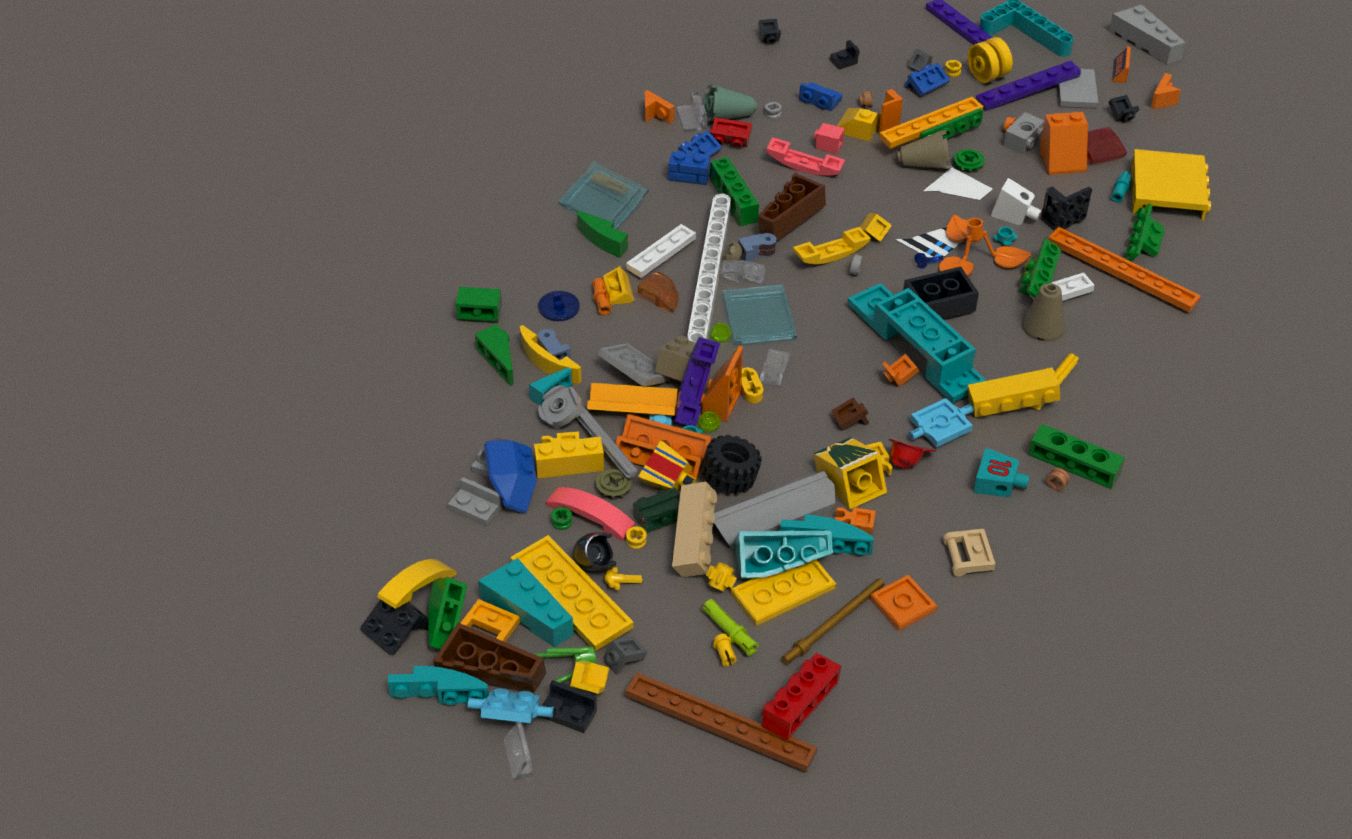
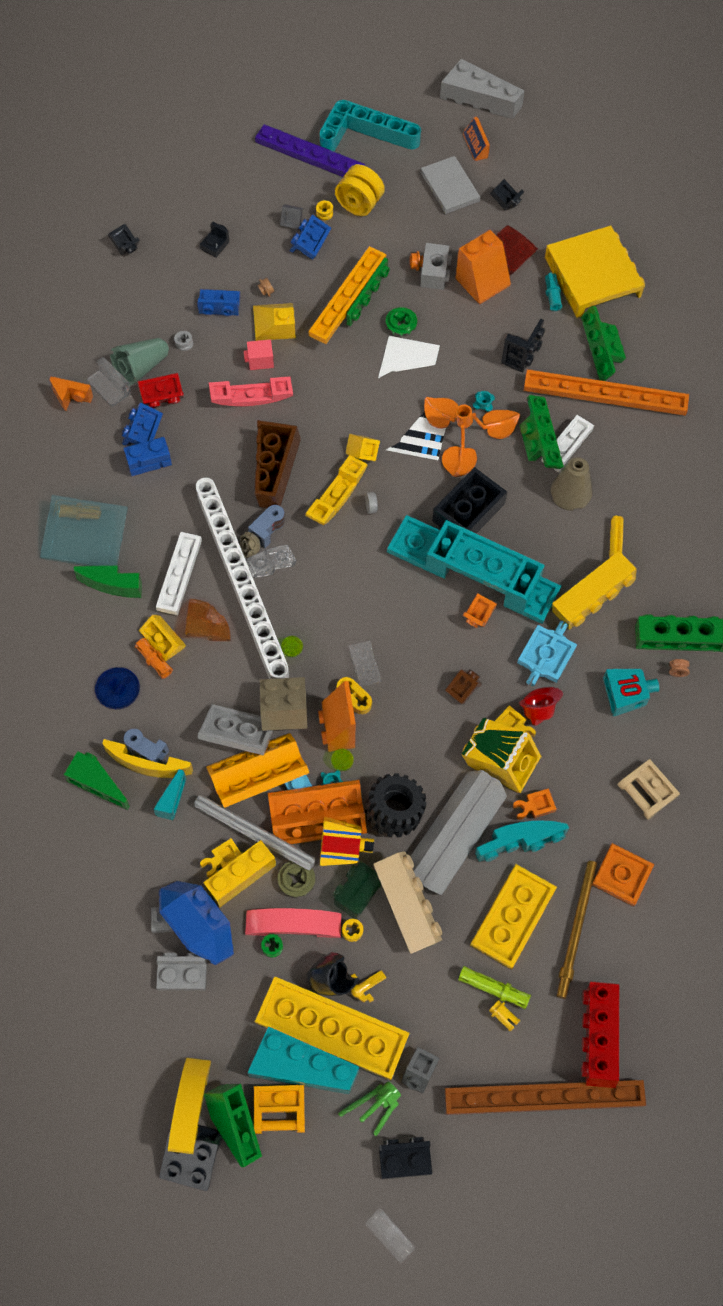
camera: 30 degrees left, 20 degrees up
(427, 681) = (286, 1199): teal slope -> none
(478, 304) = (42, 731): green brick -> none
(490, 660) = (304, 1154): reddish brown wedge -> none
(510, 706) = (357, 1193): medium azure plate -> none
(570, 409) = (208, 813): light grey plate -> none
(590, 676) = (407, 1118): yellow panel -> none
(694, 381) = (311, 731): dark purple slope -> none
(721, 576) = (457, 937): yellow gear -> none
(729, 182) = (207, 465): green brick -> none
(759, 314) = (314, 606): clear light blue piece -> none
(772, 552) = (488, 887): teal wedge -> none
(890, 111) = (303, 298): orange panel -> none
(922, 261) = (430, 463): clear blue hand -> none
(926, 152) = (363, 333): dark tan cone -> none
(1015, 204) = (476, 361): white torso -> none
(1028, 85) = (406, 203): dark purple plate -> none
(1165, 94) = (533, 159): orange slope -> none

